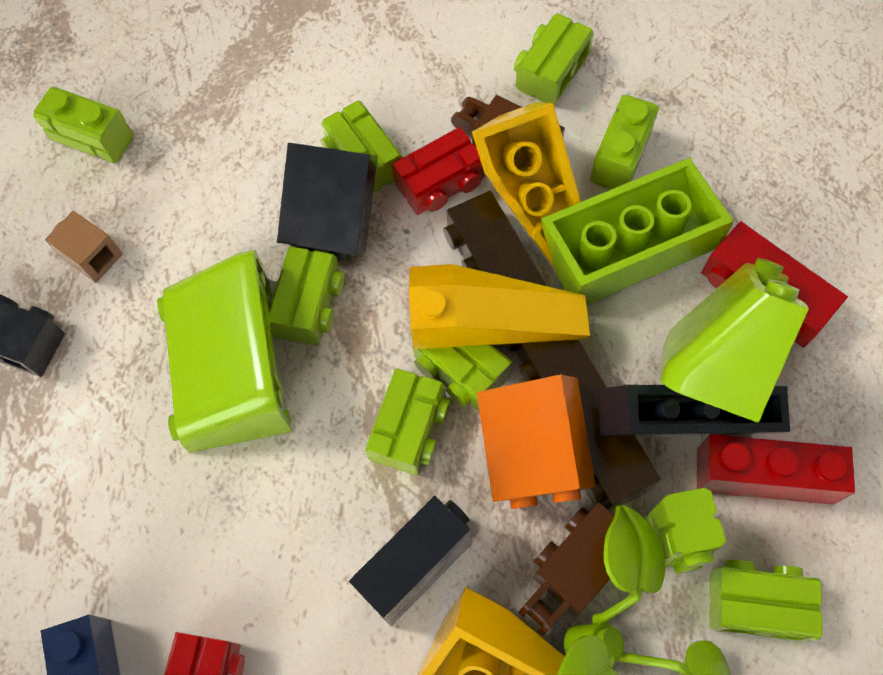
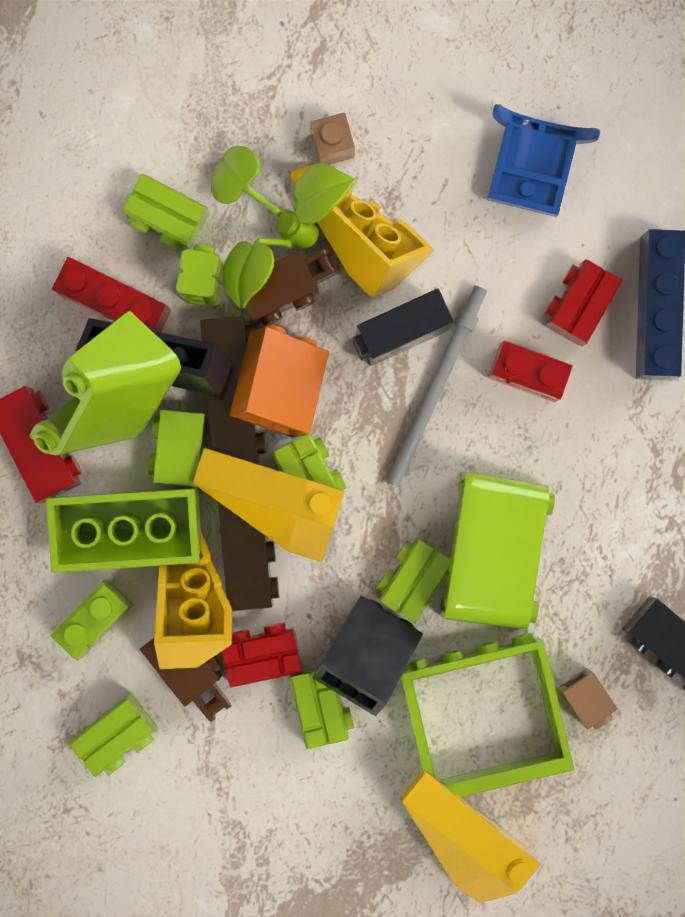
camera: 165 degrees left, 20 degrees up
(83, 124) = (560, 827): lime brick -> none
(162, 148) = (509, 773): none -> lime window
(168, 80) = (469, 845): none -> yellow wedge
(239, 571) = (530, 371): none -> red brick
(341, 607) = (465, 323): none -> light grey bar
(407, 422) = (369, 439): lime brick -> none
(618, 337) = (179, 447): none -> lime brick

